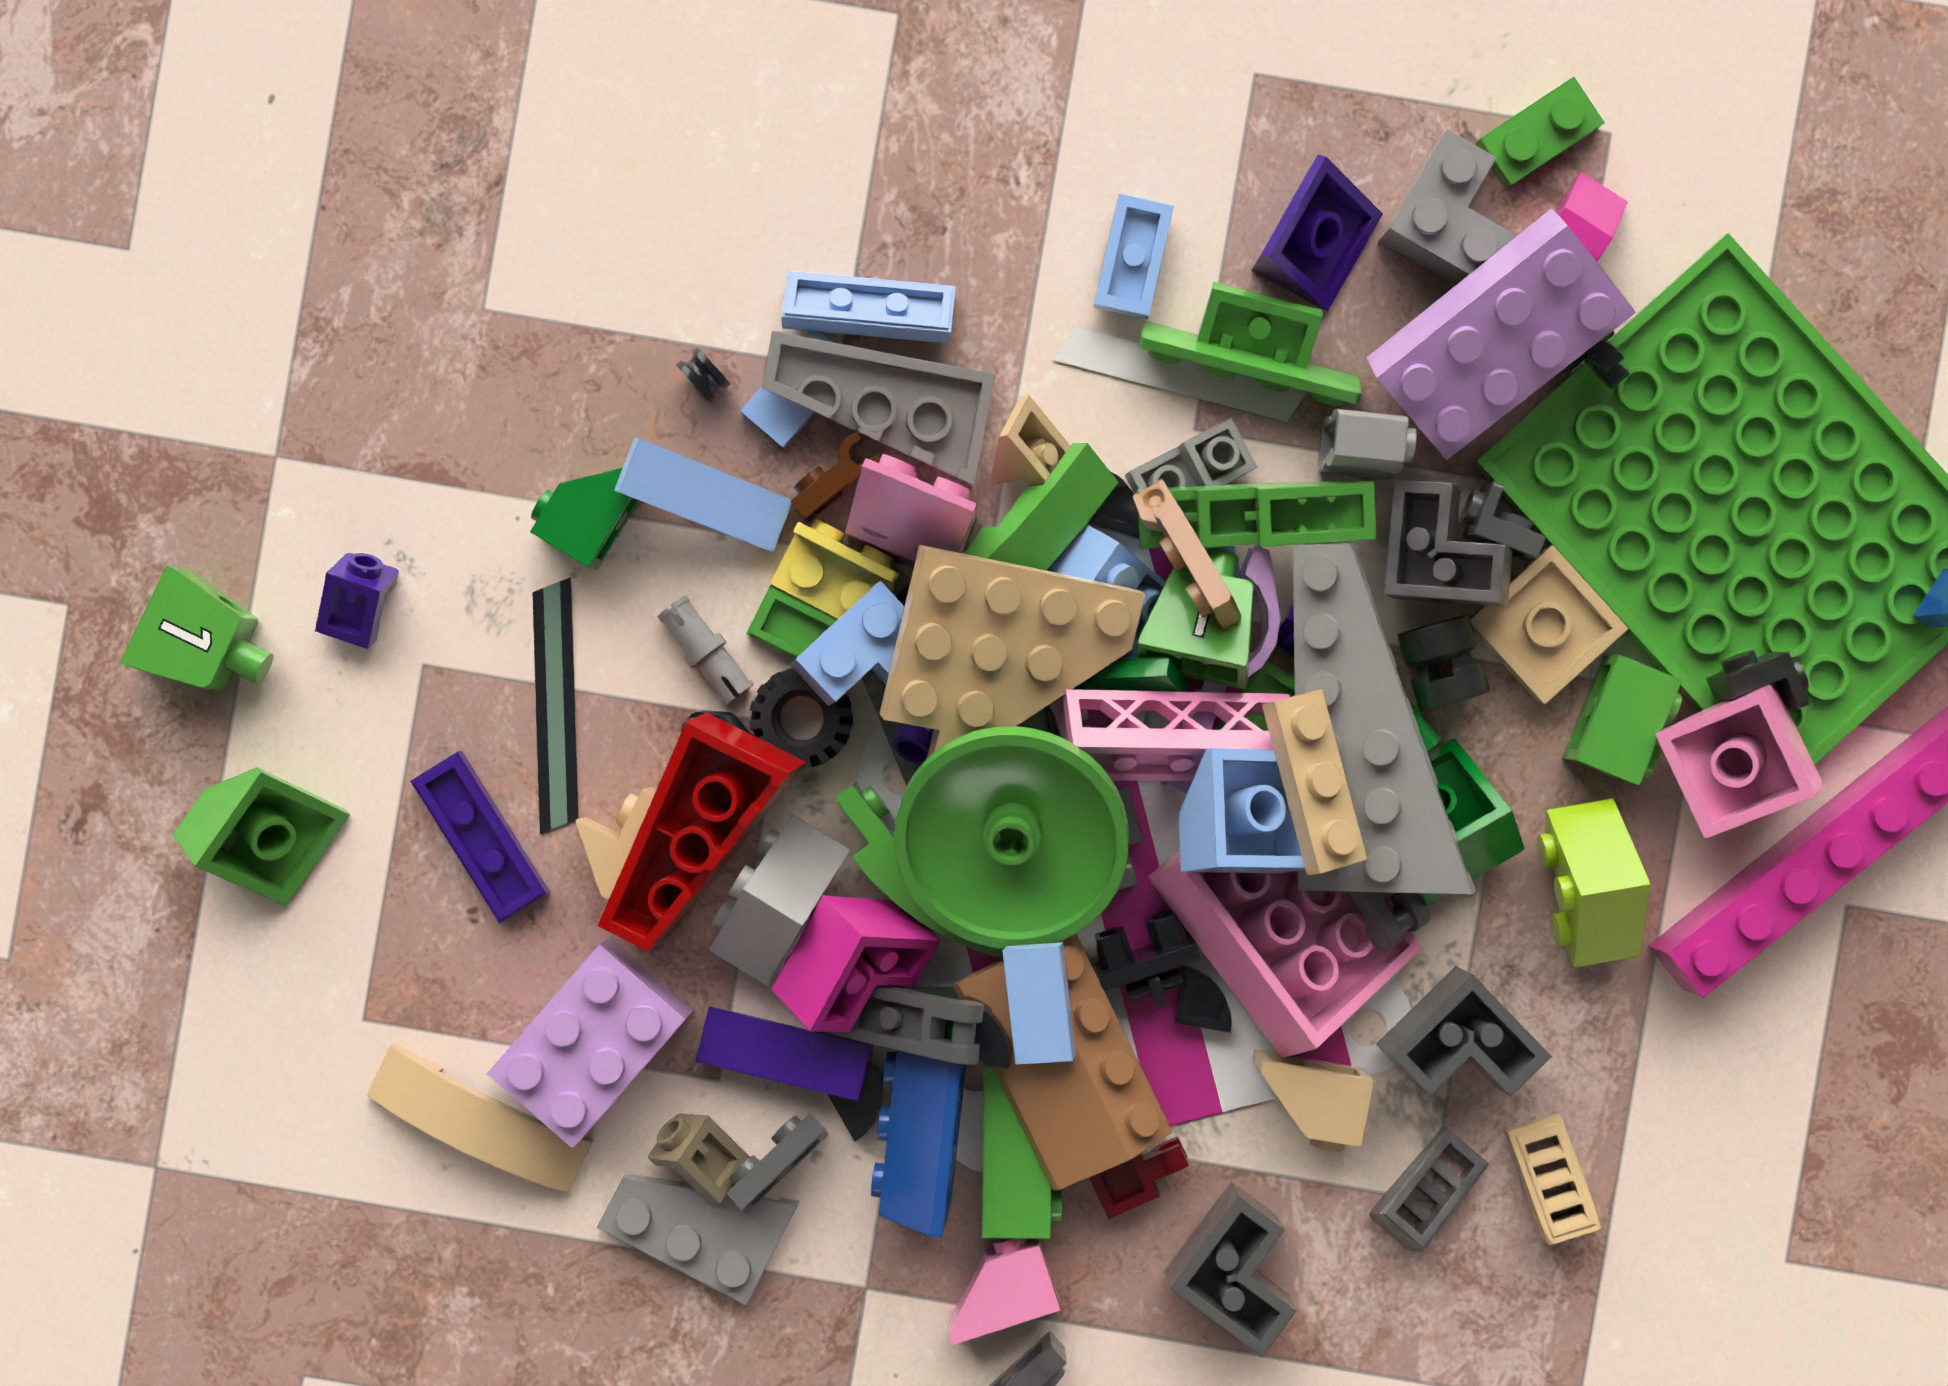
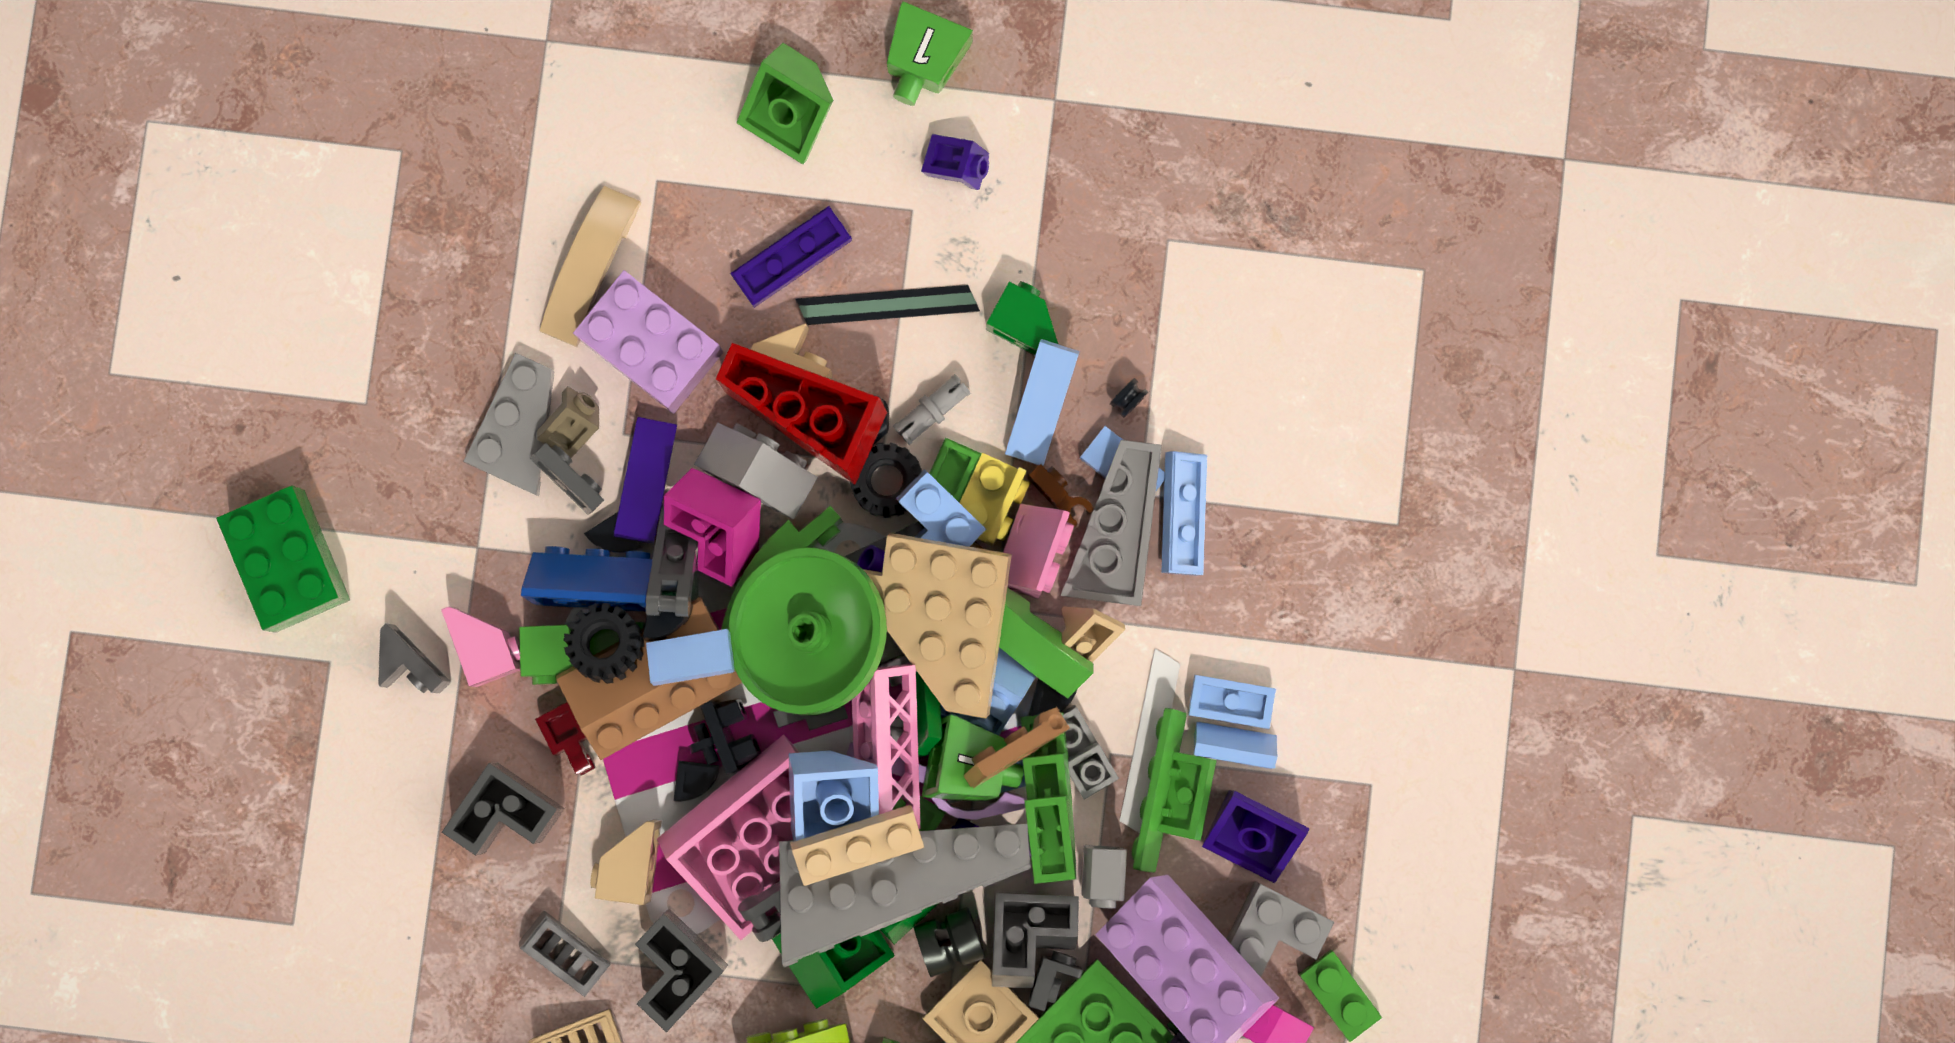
camera: 85 degrees right, 5 degrees down
(989, 1146) = (589, 624): none -> black tyre
(1193, 254) = (1235, 745): none -> light blue tile

